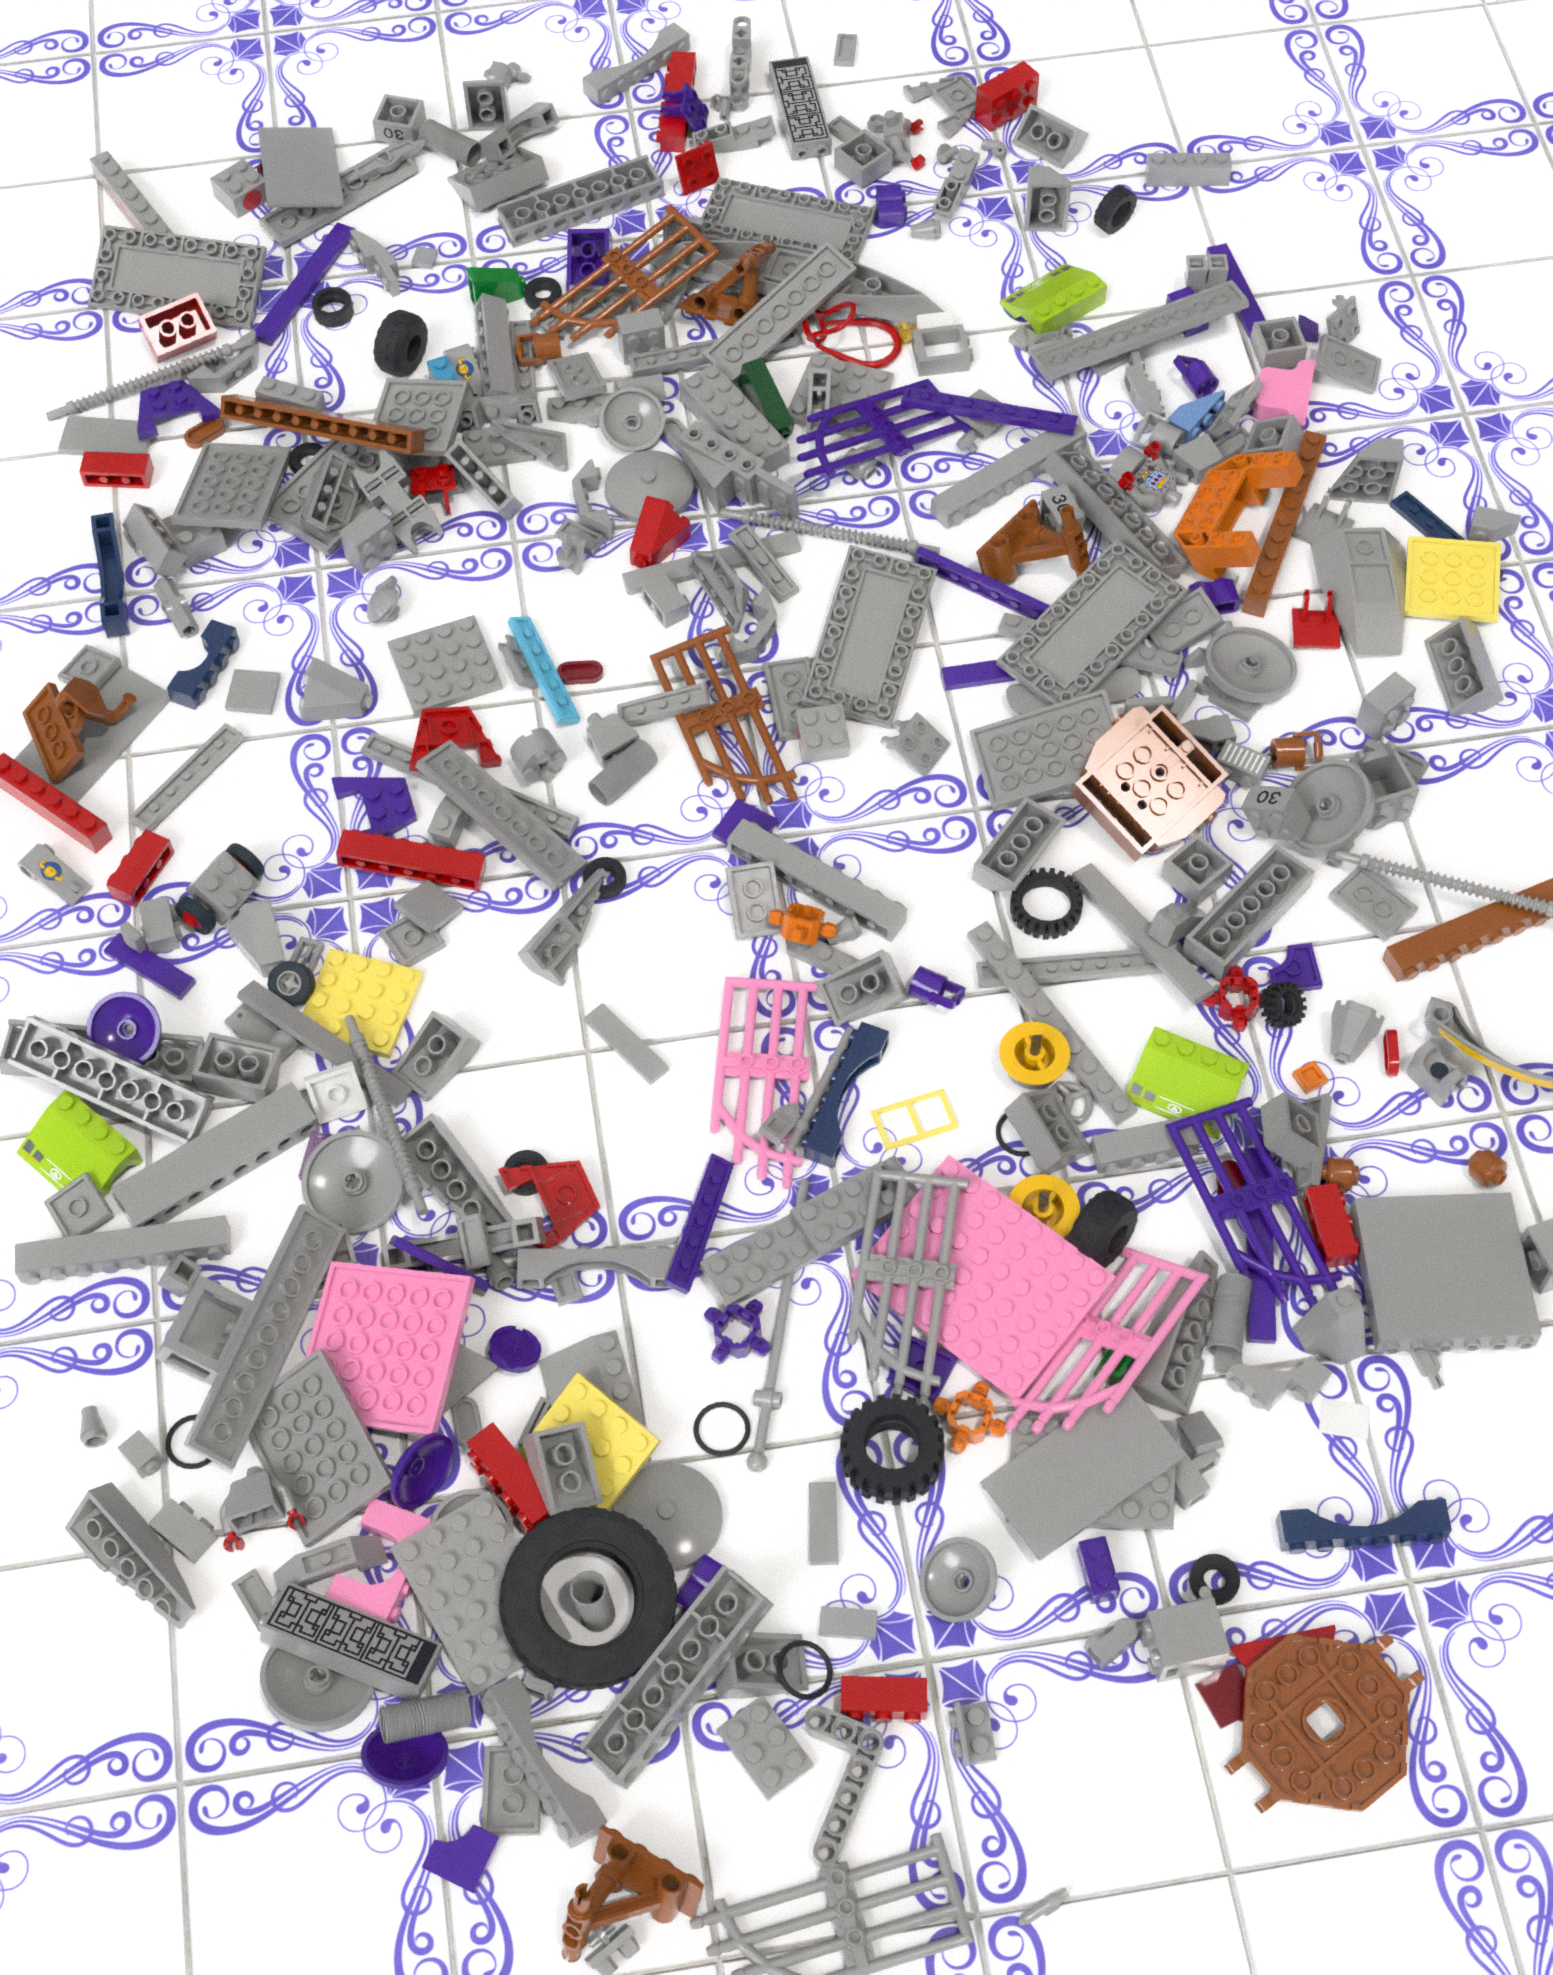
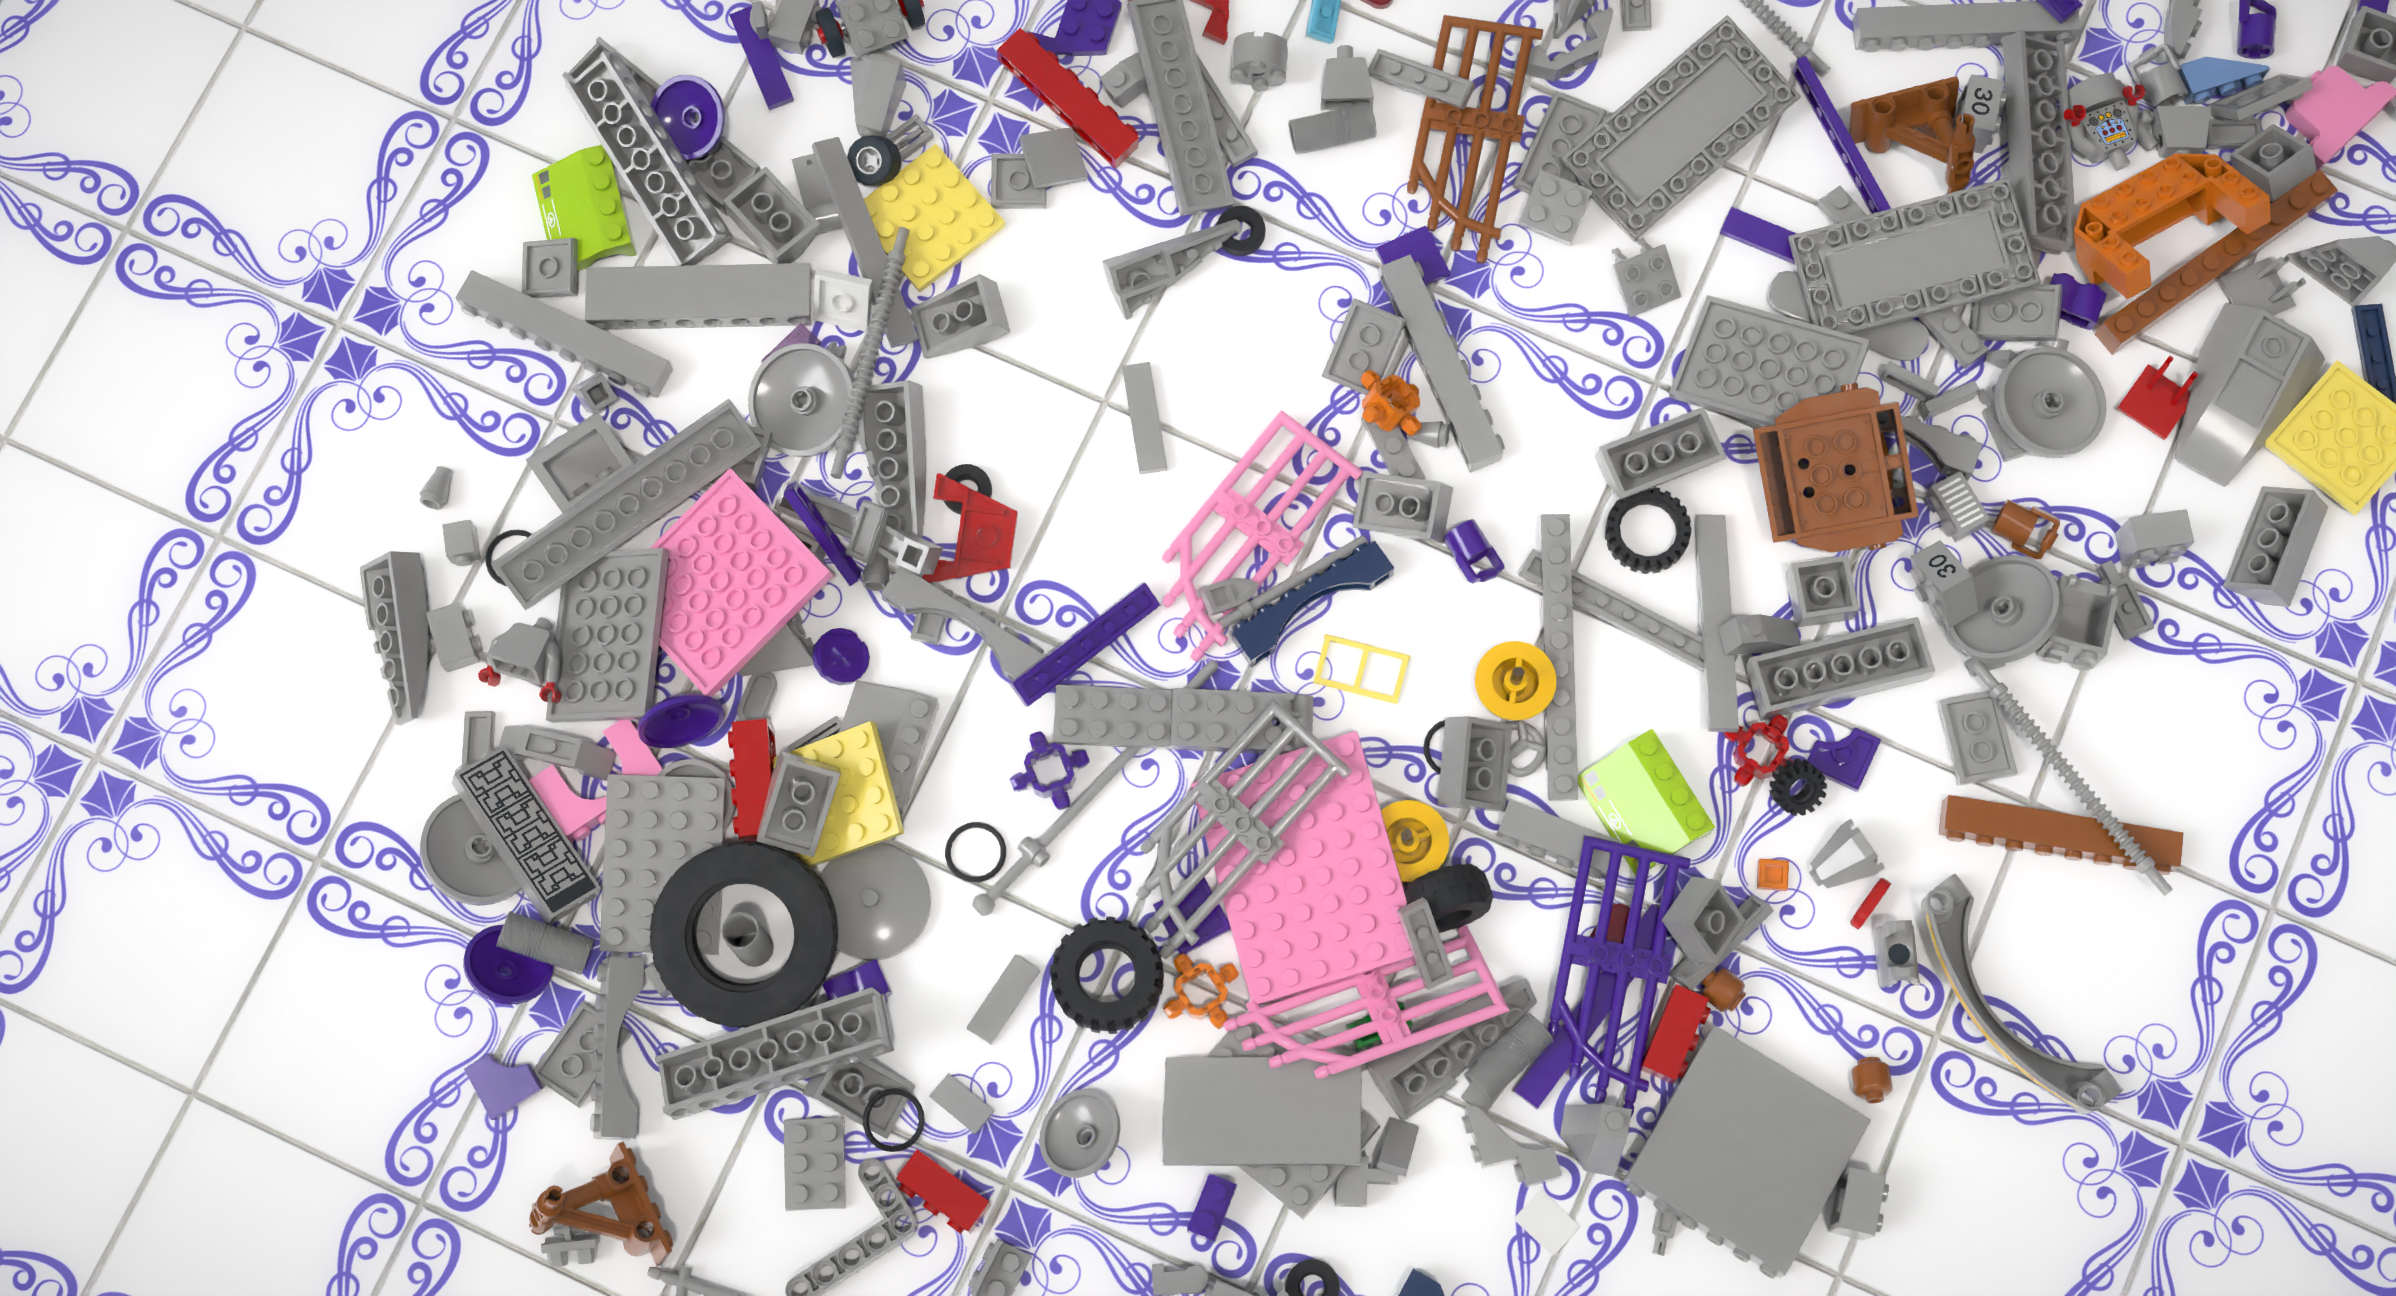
camera: 35 degrees right, 15 degrees up
(1114, 1265) = (1425, 943): none -> light grey plate

